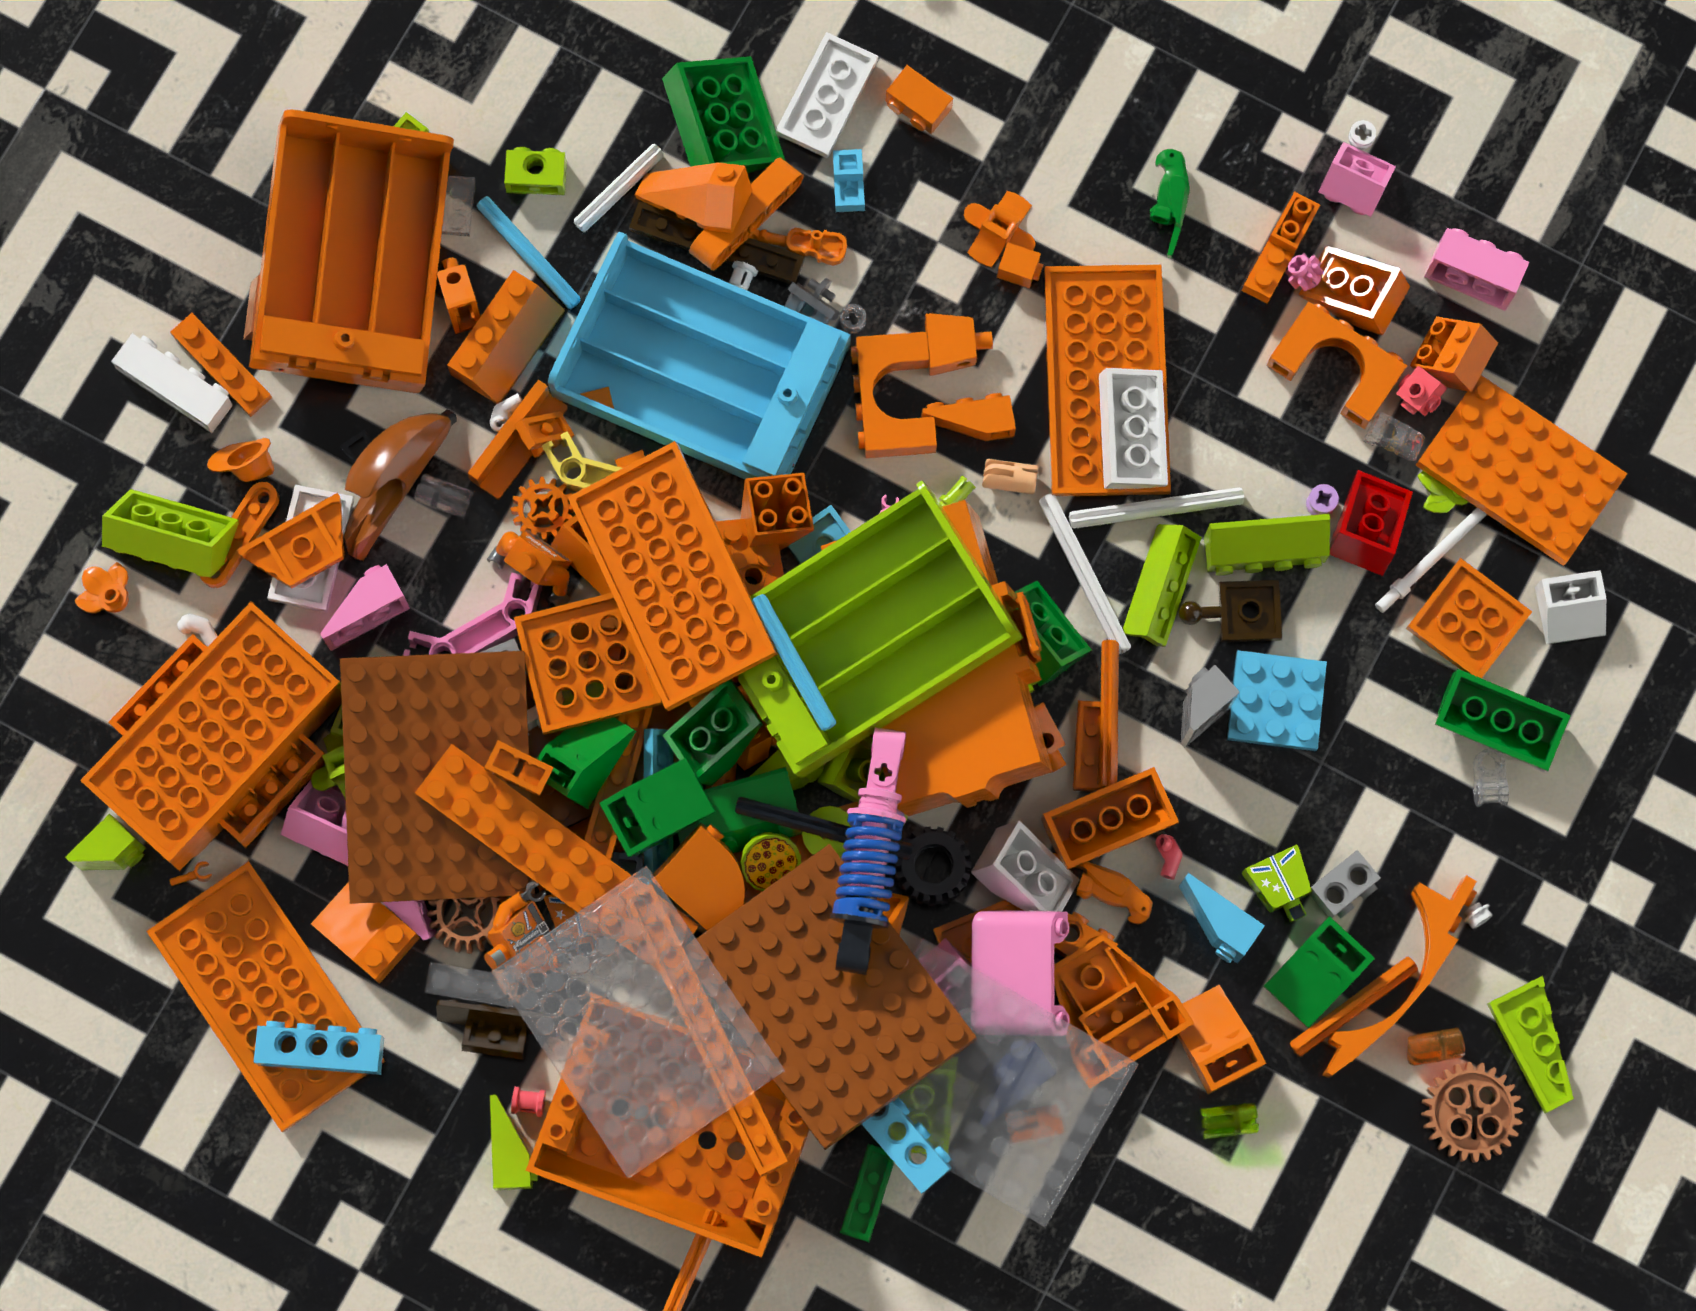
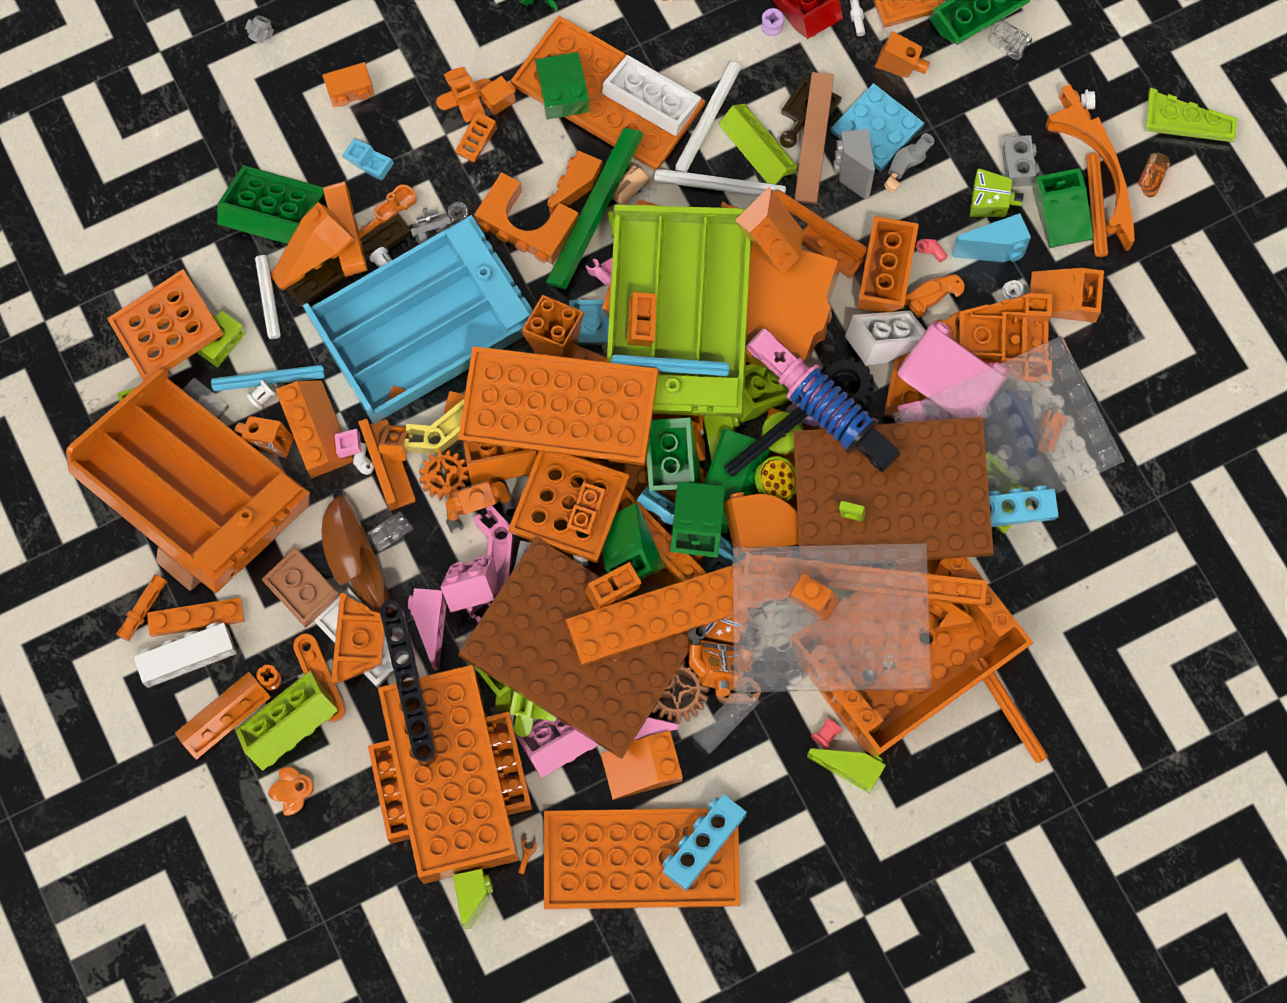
camera: 50 degrees left, 5 degrees down
(135, 464) = (222, 715): none -> orange panel
(183, 304) = (136, 615): none -> orange pin
(196, 483) = (273, 683): none -> orange bush
(197, 624) = (360, 743): white arm -> none
(245, 460) = (273, 640): orange piece -> none
(270, 643) = (412, 693): none -> black beam
(321, 447) = (300, 587): none -> nougat tile
(435, 618) = (470, 583): none -> bright pink slope
(487, 1028) = (763, 726): dark brown bracket -> none
(495, 256) = (264, 387): none -> white bush
(507, 386) = (348, 443): none -> bright pink plate
(514, 123) = (170, 312): none -> orange piece
(591, 682) = (586, 508): none -> orange slope
(638, 987) = (814, 597): none -> orange torso
(738, 1155) = (953, 616): none -> orange slope
(769, 965) = (852, 511): none -> lime tile
(823, 597) = (641, 319): none -> orange brick
(826, 95) = (303, 136): white plate -> none
(867, 1194) = (1025, 562): green tile -> none
(953, 342) = (518, 162): orange torso -> none
(954, 287) = (479, 119): none -> orange slope
(957, 459) = (594, 208): none -> green tile
(1012, 668) = (772, 230): none -> orange slope
(1076, 325) = (562, 85): none -> green slope
(1188, 975) = (1013, 285): none -> white plate
(1209, 640) = (814, 138): none -> nougat tile
(1229, 1120) = (1121, 318): clear neon green arm -> none
(1258, 756) = (907, 158): none -> light grey arm
(1267, 544) = (778, 66): lime slope -> none
(1373, 661) = (901, 56): none -> orange torso
(1500, 1112) = (1197, 194): nougat gear -> none

